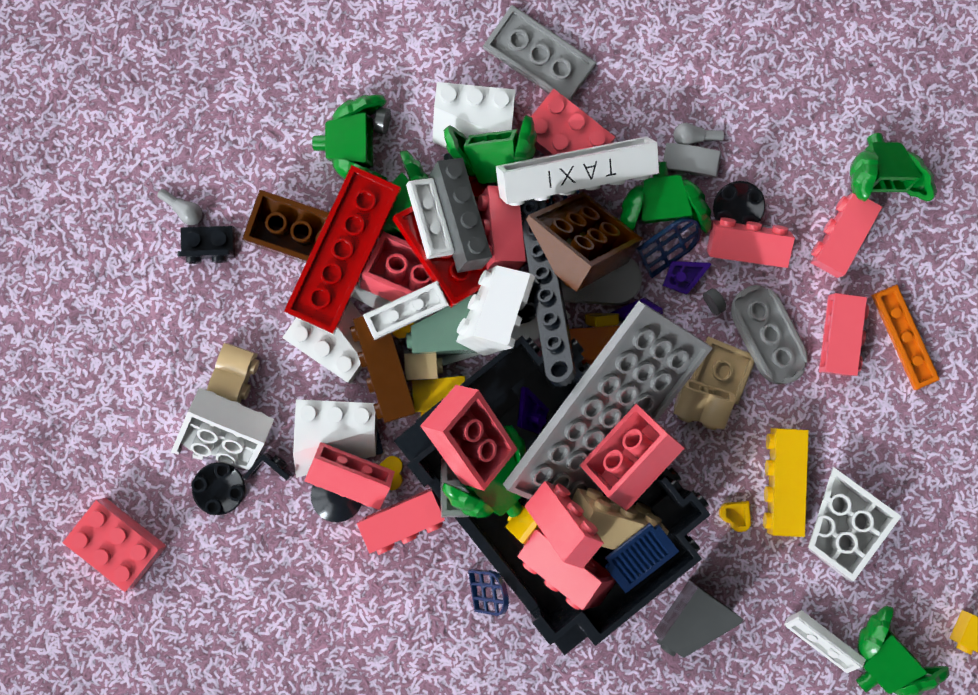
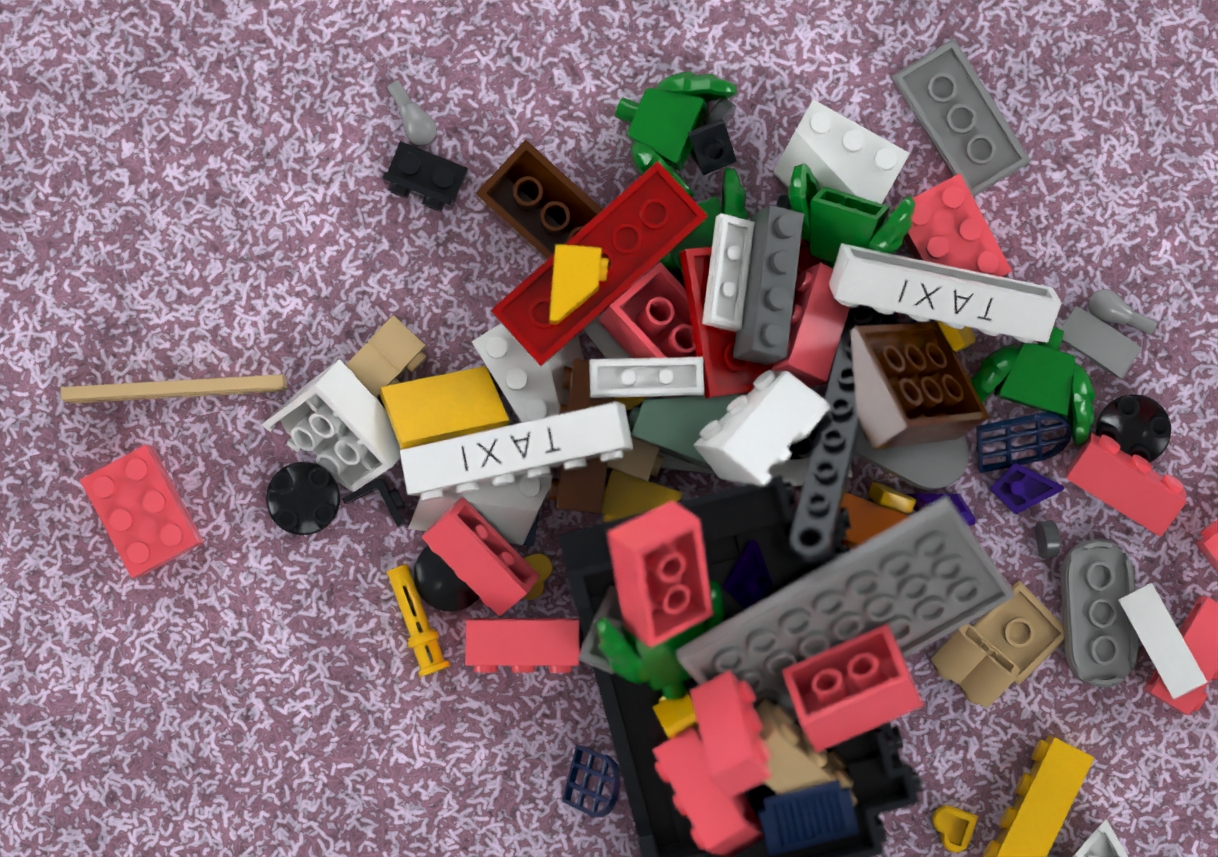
camera: 25 degrees right, 0 degrees up
(101, 454) = (174, 389): none -> tan tile
(283, 389) = (443, 407): none -> yellow tile
(329, 266) = (575, 278): none -> yellow slope
(334, 549) = (400, 578): none -> yellow pin
(340, 396) = (517, 450): none -> white brick
(384, 141) = (711, 147): none -> black bracket
(599, 195) = (957, 338): none -> yellow tile
(819, 335) = (1162, 641): none -> white tile

